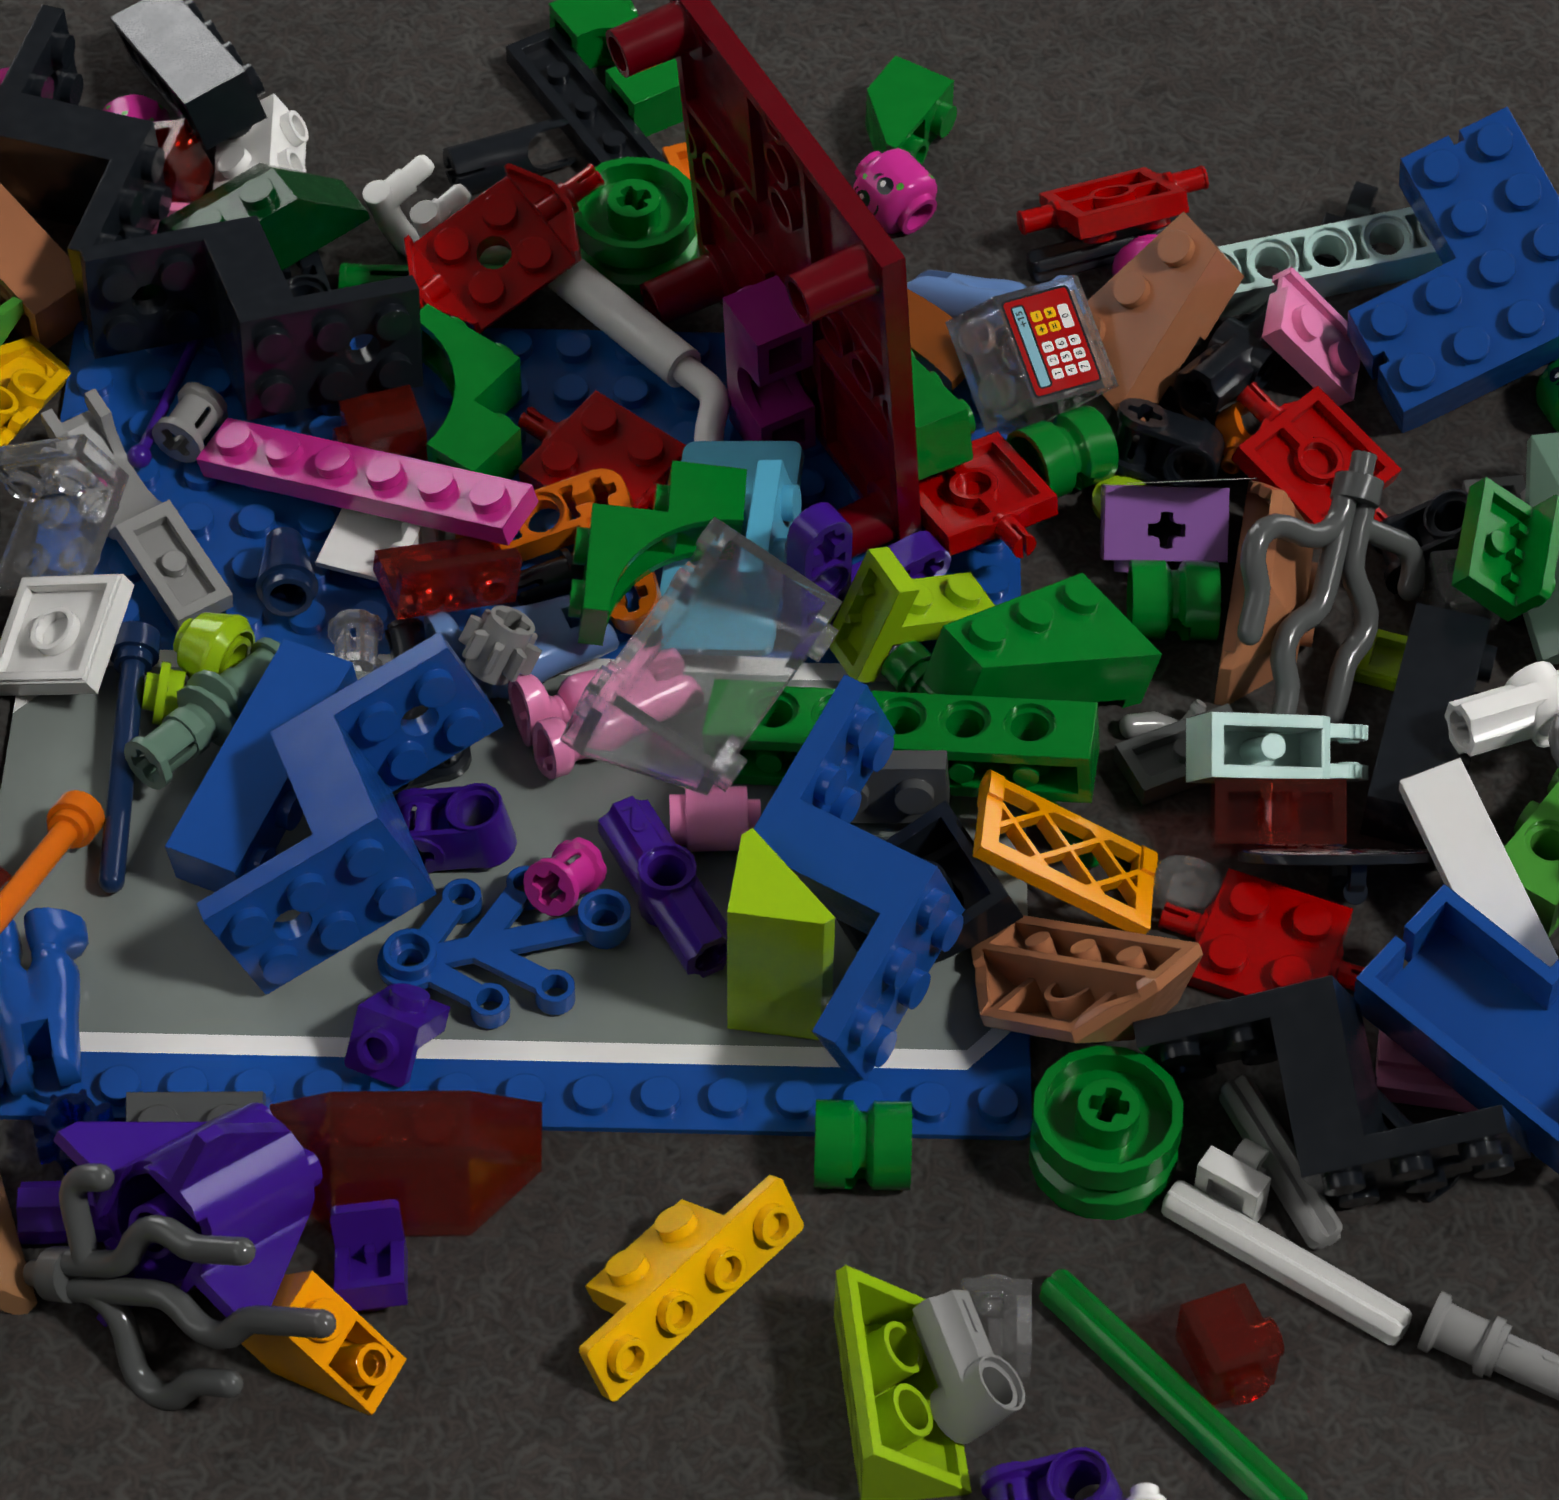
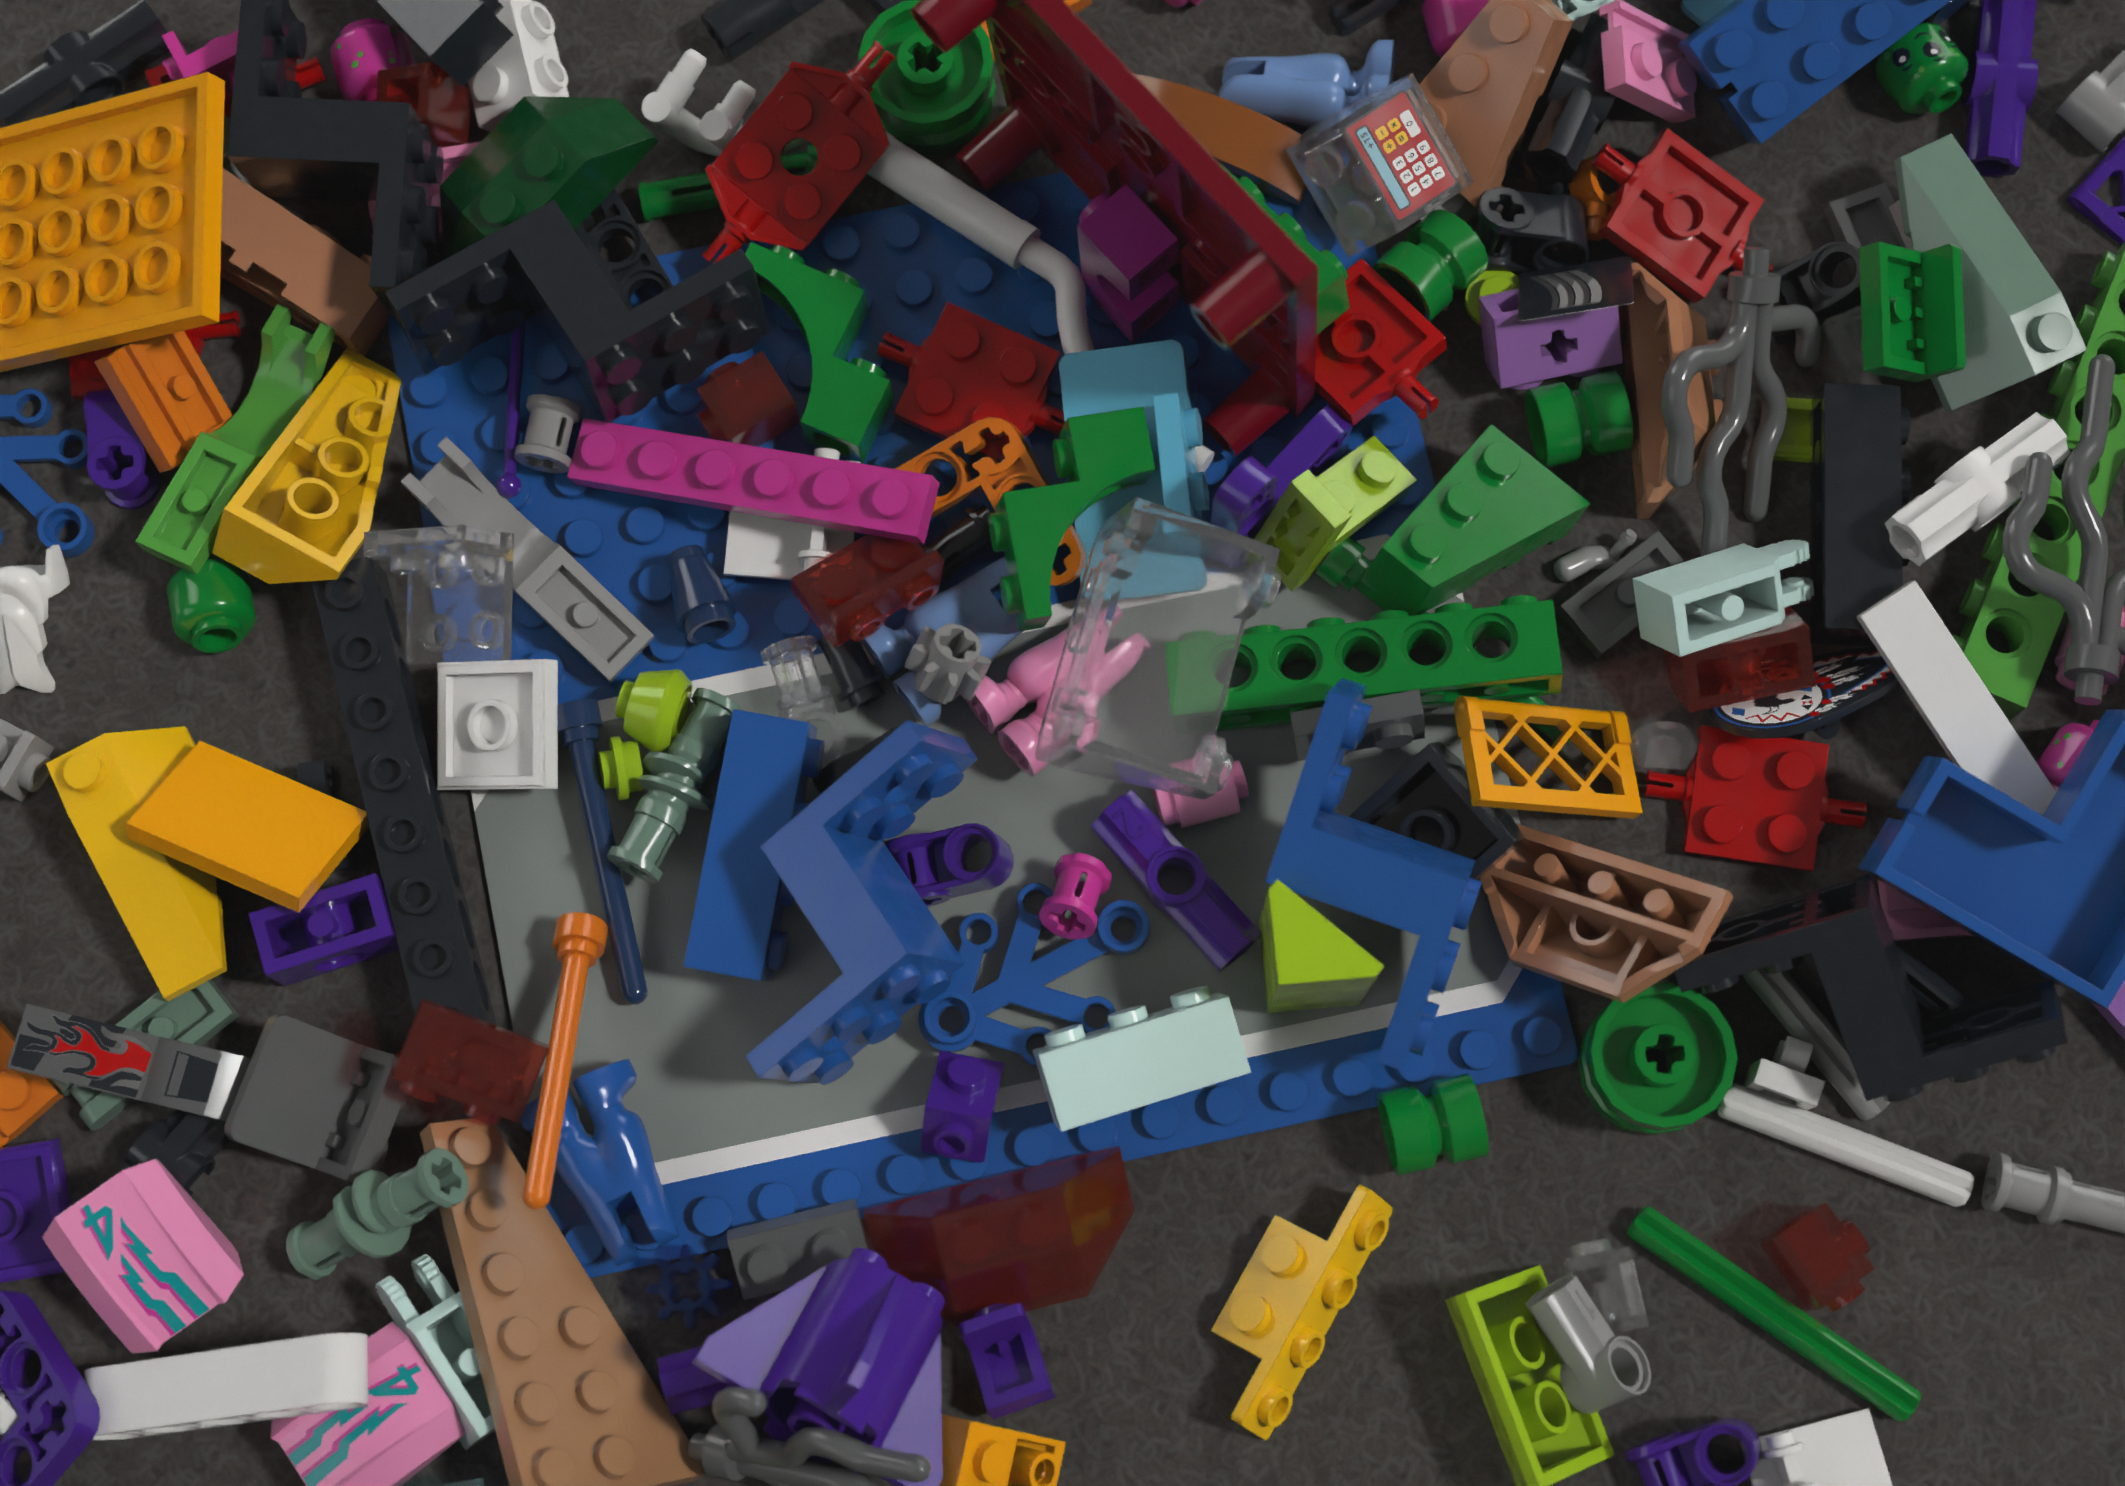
camera: 10 degrees left, 25 degrees up
(585, 1019) = (1140, 1058): none -> light aqua brick

